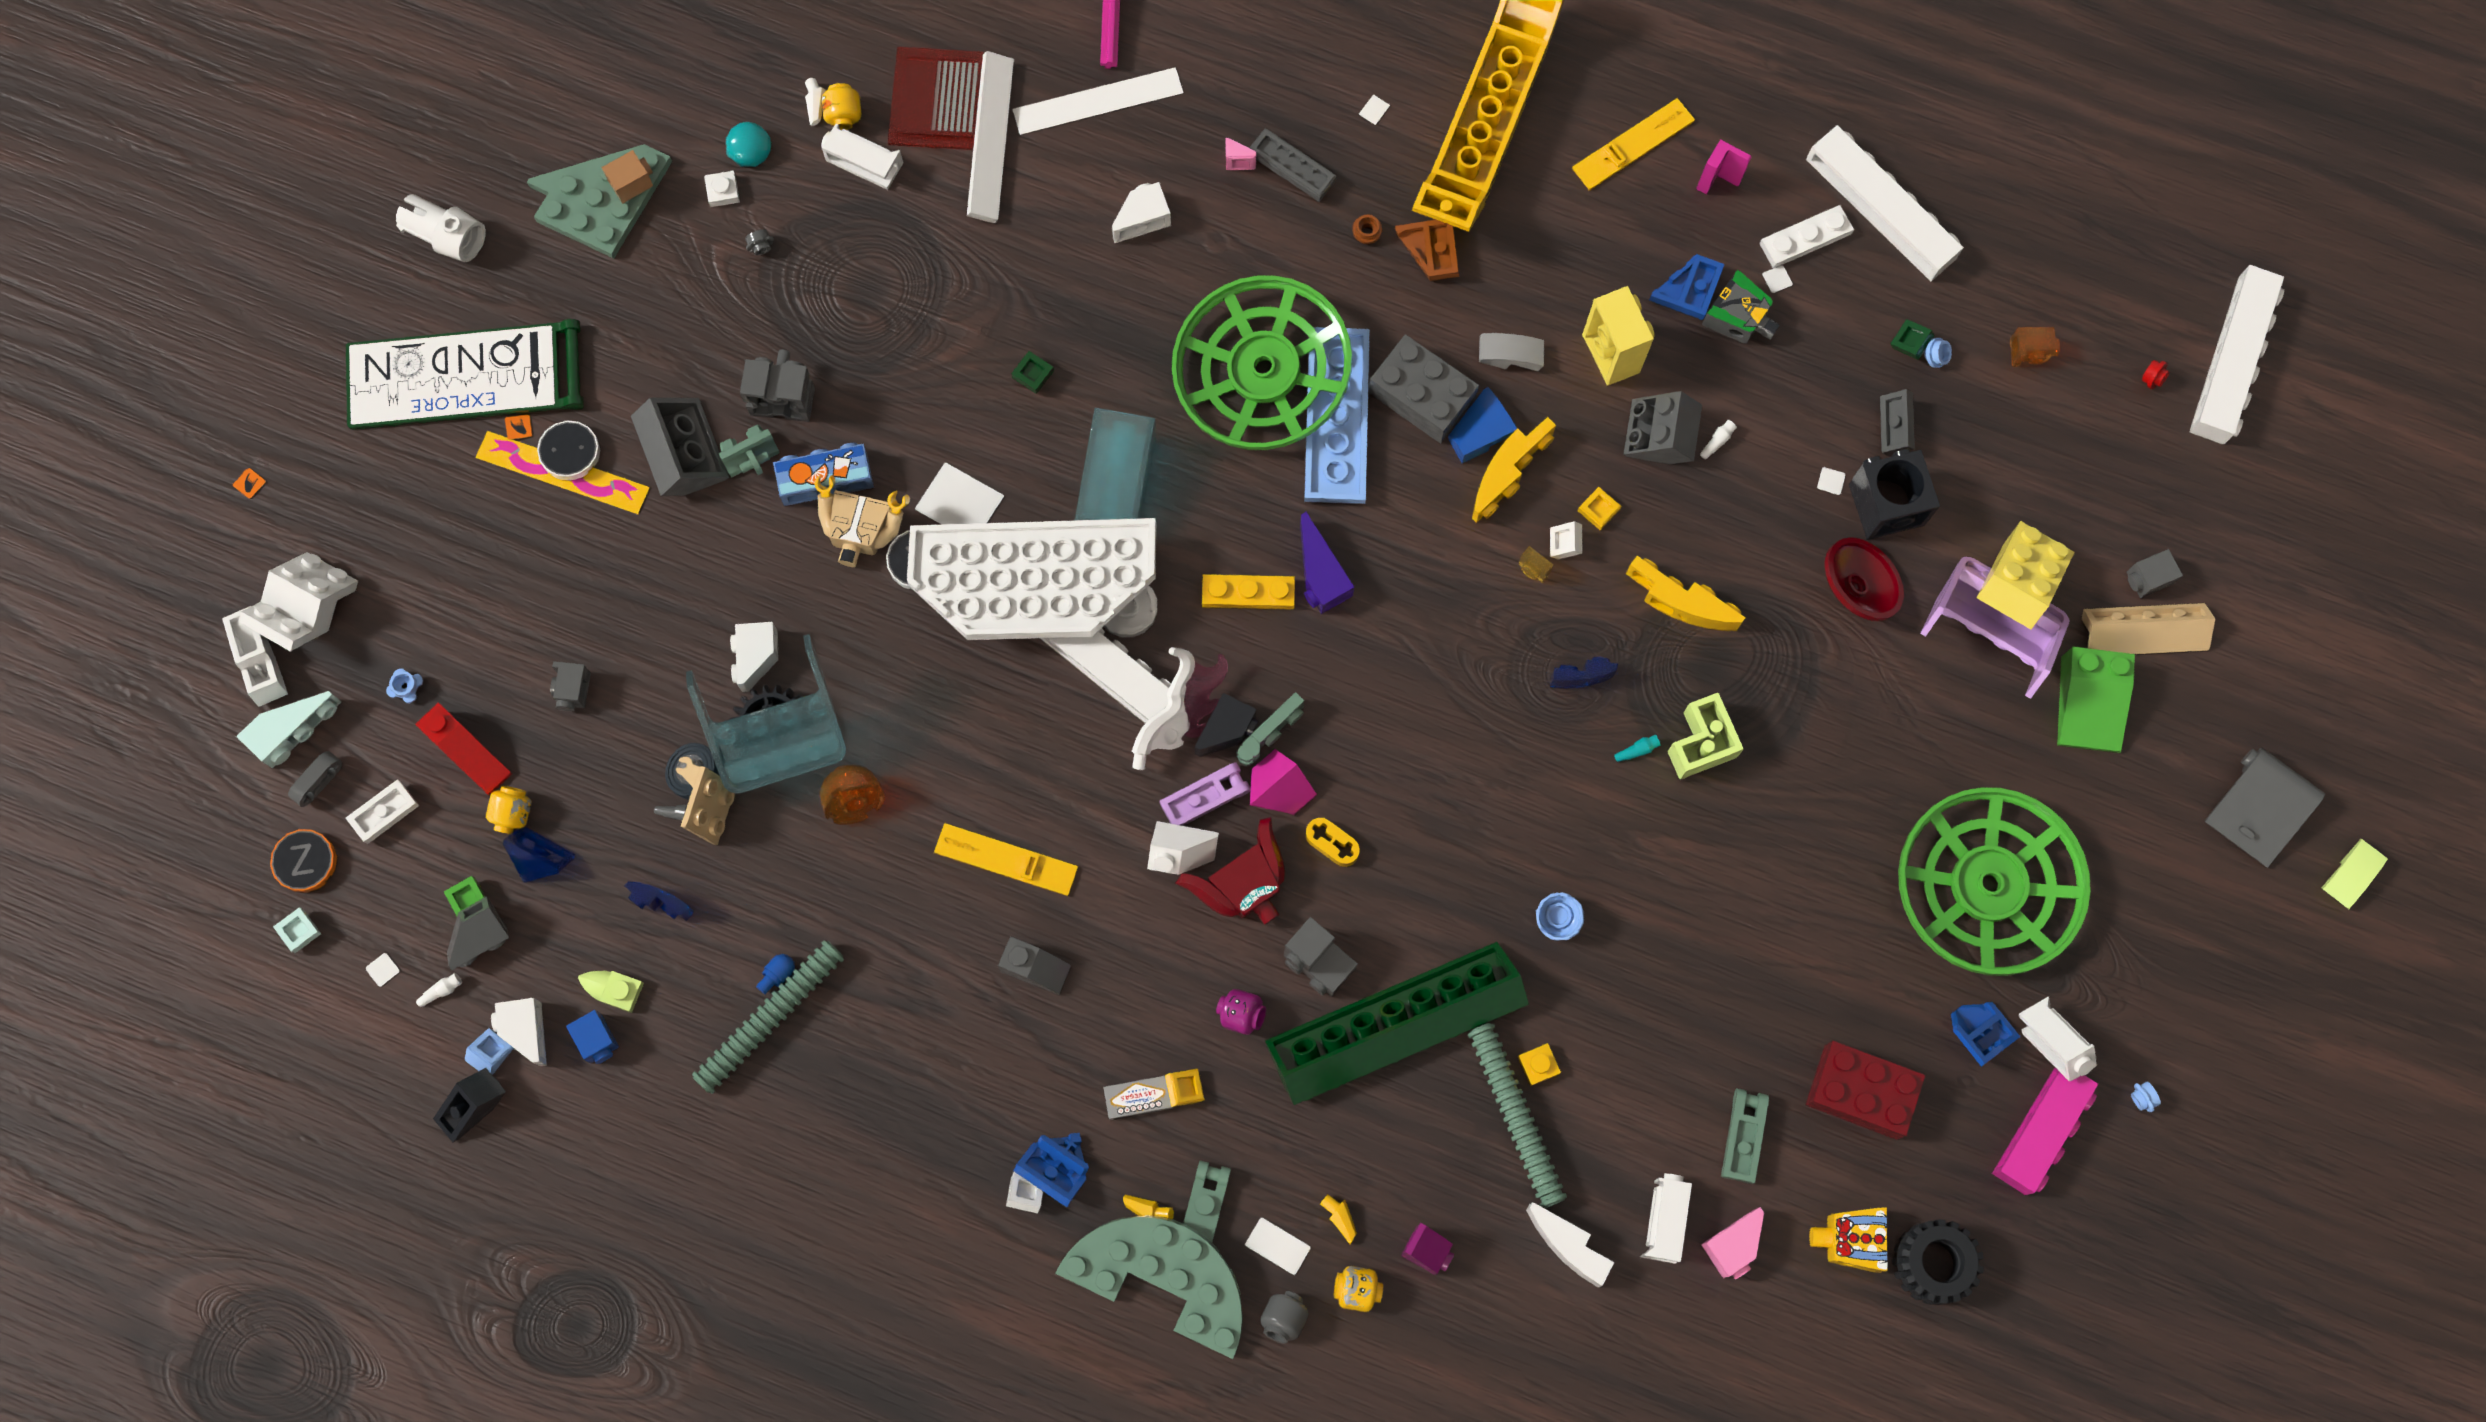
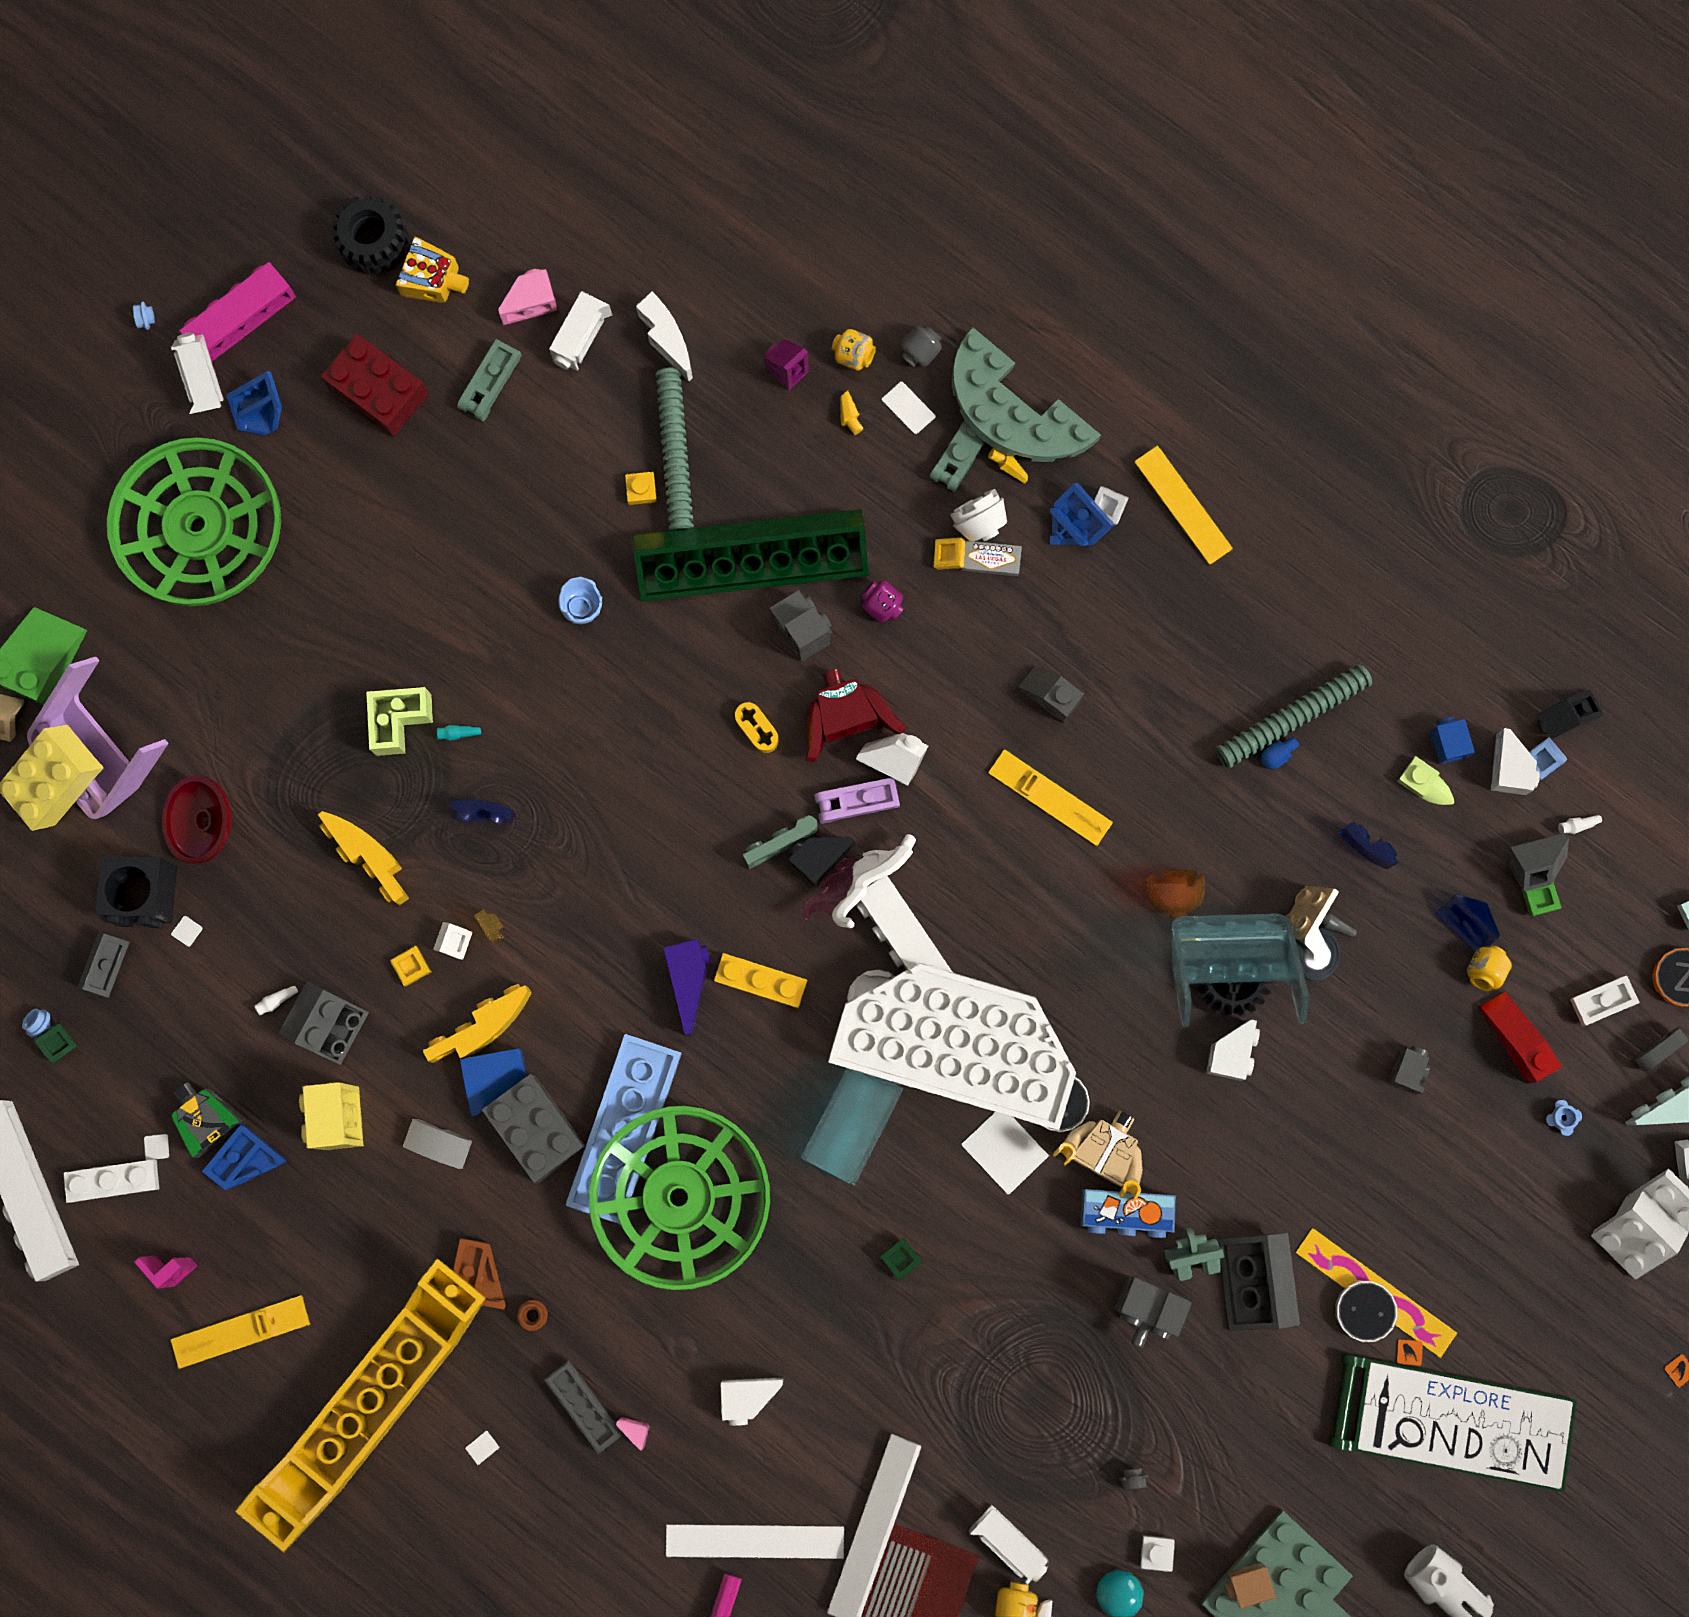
camera: 160 degrees left, 5 degrees up
(382, 969) = (1627, 859): white sticker -> none
(944, 1220) = (1183, 505): none -> yellow piece
(1162, 1133) = (980, 517): none -> white cone
(1279, 785) = (789, 791): dark pink slope -> none

